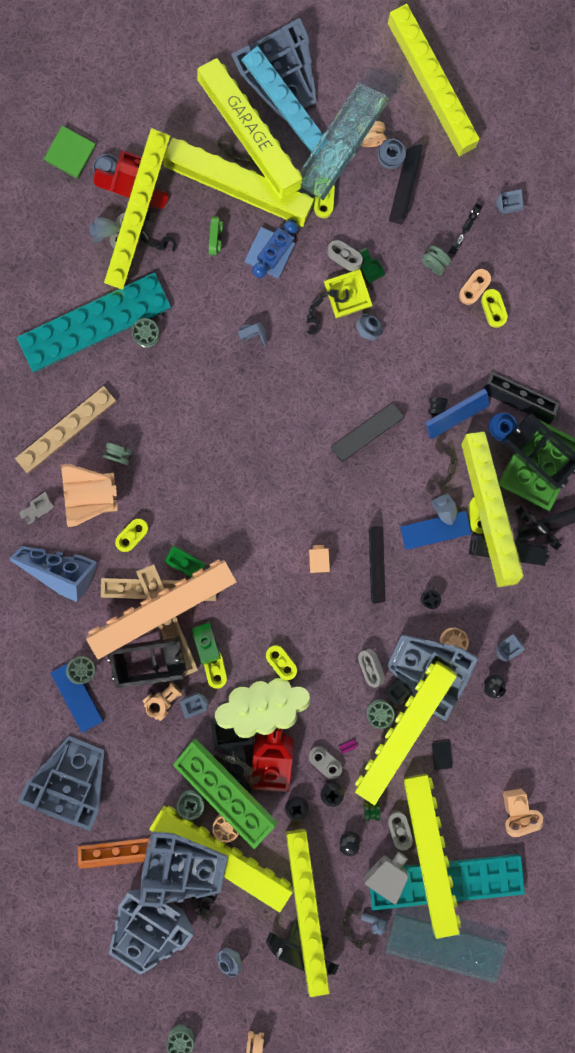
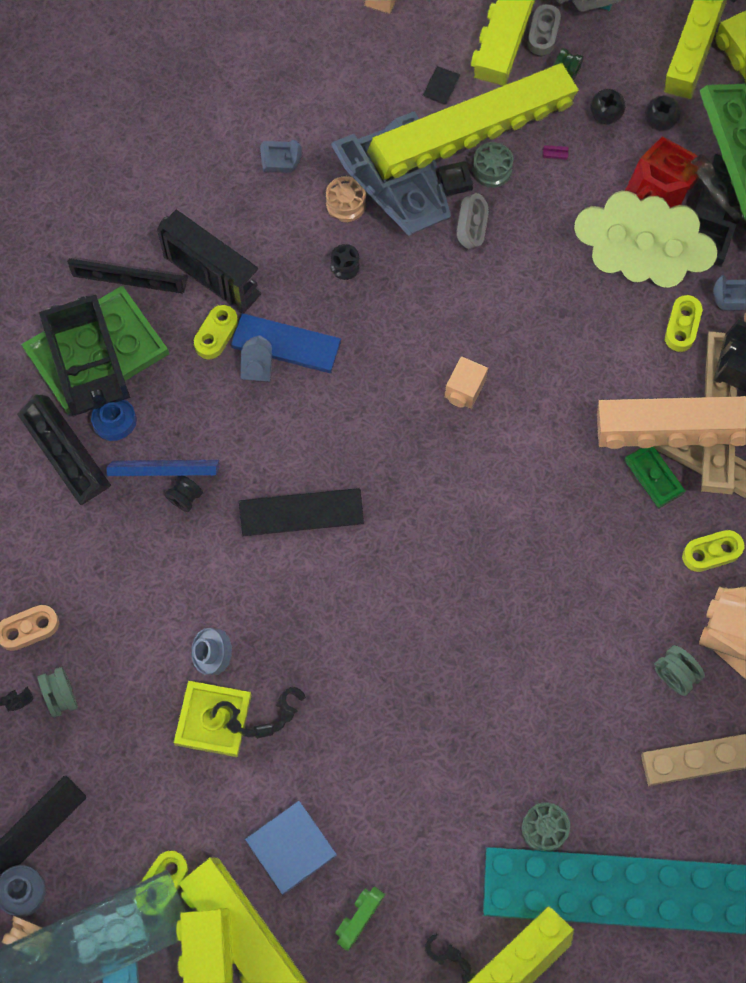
camera: 150 degrees left, 20 degrees down
(206, 643) = (680, 357): green plate -> none
(248, 331) = (389, 742): sand blue plate -> none
(275, 248) = (280, 843): blue plate -> none
(281, 662) = (588, 288): neon yellow plate -> none
(325, 762) = (594, 146): light grey plate -> none
(345, 255) = (182, 776): light grey plate -> none
(349, 843) = (616, 43): black piece -> none
(371, 269) = (156, 738): dark green plate -> none
(377, 567) = (391, 341): black slope -> none
(451, 469) = (216, 406): clear smoke piece -> none
(491, 510) = (199, 310): neon yellow brick -> none
(495, 308) = (19, 584): neon yellow plate -> none
(495, 686) = (327, 122): black piece -> none
(550, 539) = (148, 267): black piece -> none

